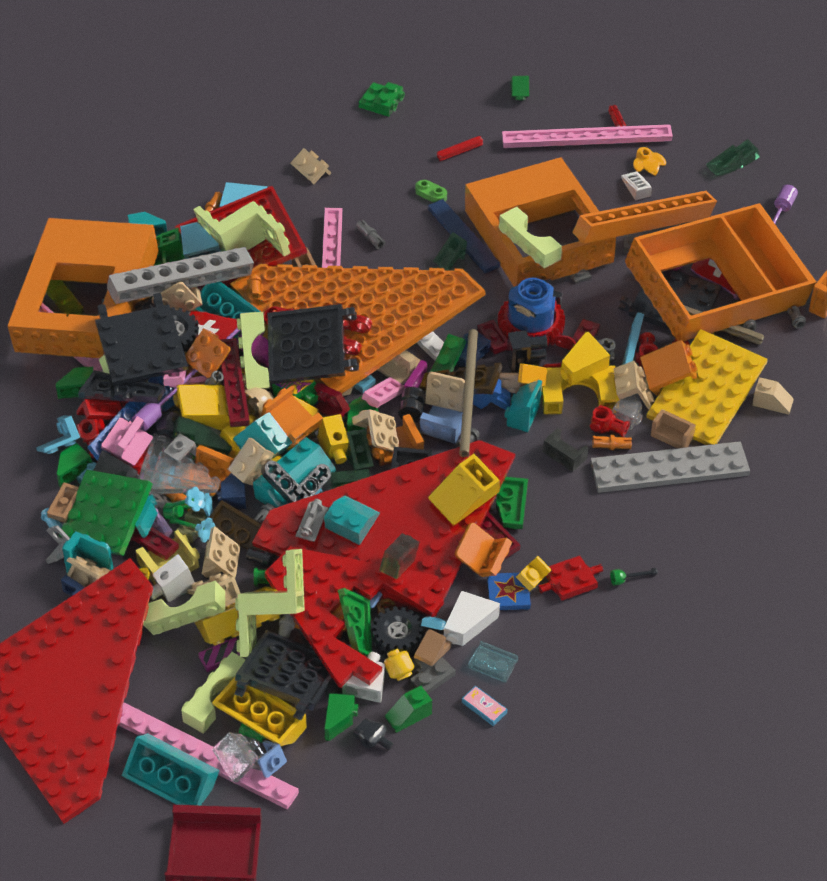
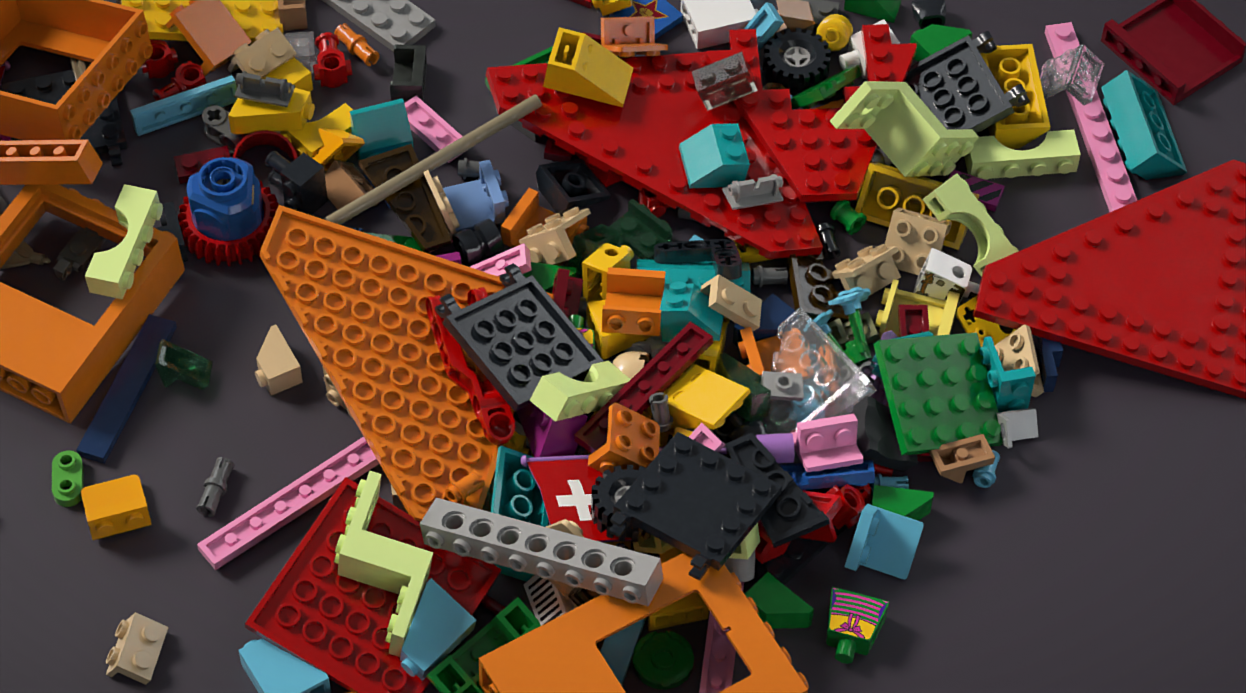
camera: 130 degrees left, 5 degrees up
(36, 405) = (854, 623): none -> torso
(272, 759) = (1049, 45): medium blue bracket -> none
(393, 195) = (115, 506): none -> light orange bracket
(515, 437) = (430, 125): none -> bright pink plate
(589, 348) = (267, 90): none -> dark grey hinge

